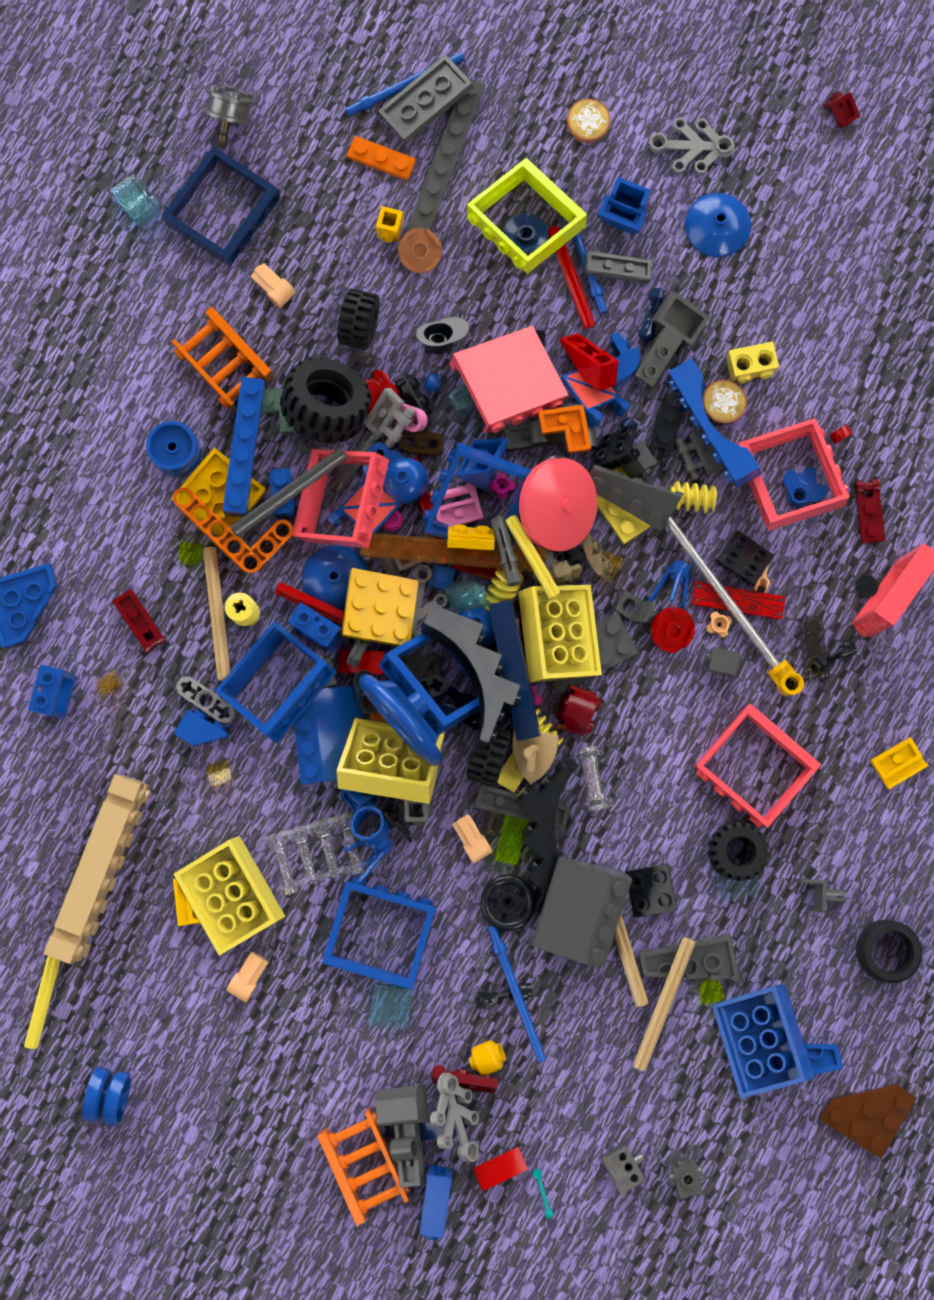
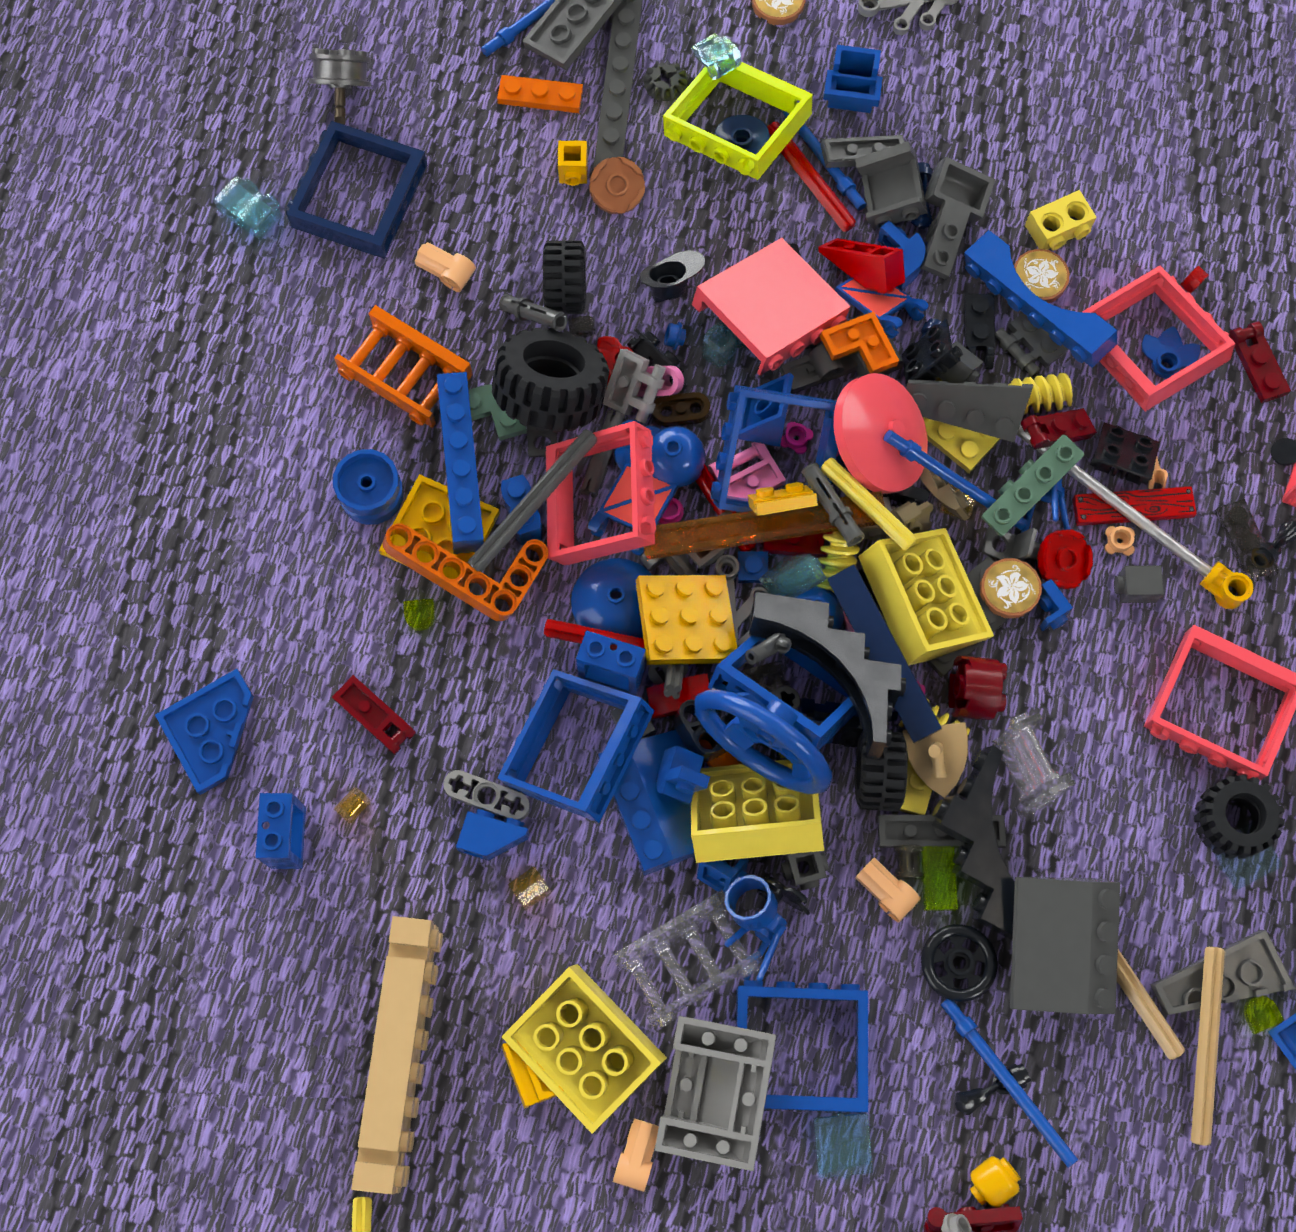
camera: 15 degrees left, 10 degrees down
(216, 612) = (473, 681): tan axle -> none
(241, 601) = (508, 664): light yellow piece -> none
(309, 951) = (716, 1093): none -> light grey slope
(317, 330) = (525, 309): none -> dark grey pin
(343, 722) = (680, 774): none -> blue brick
(436, 645) = (776, 643): none -> dark grey arm
(474, 177) = (659, 89): none -> dark grey gear
(521, 163) = (717, 55): none -> clear light blue brick
(576, 526) = (912, 451): none -> blue bar
(624, 642) = (1010, 588): none -> tile
(630, 302) = (892, 185): none -> dark grey panel
(652, 891) = (1146, 899): black hinge -> none
(654, 659) = (1054, 602): none -> blue bracket
(667, 566) = (1032, 485): none -> sand green bracket
(698, 528) = (1049, 428): none -> dark red plate
(713, 236) = (963, 90): blue dish -> none

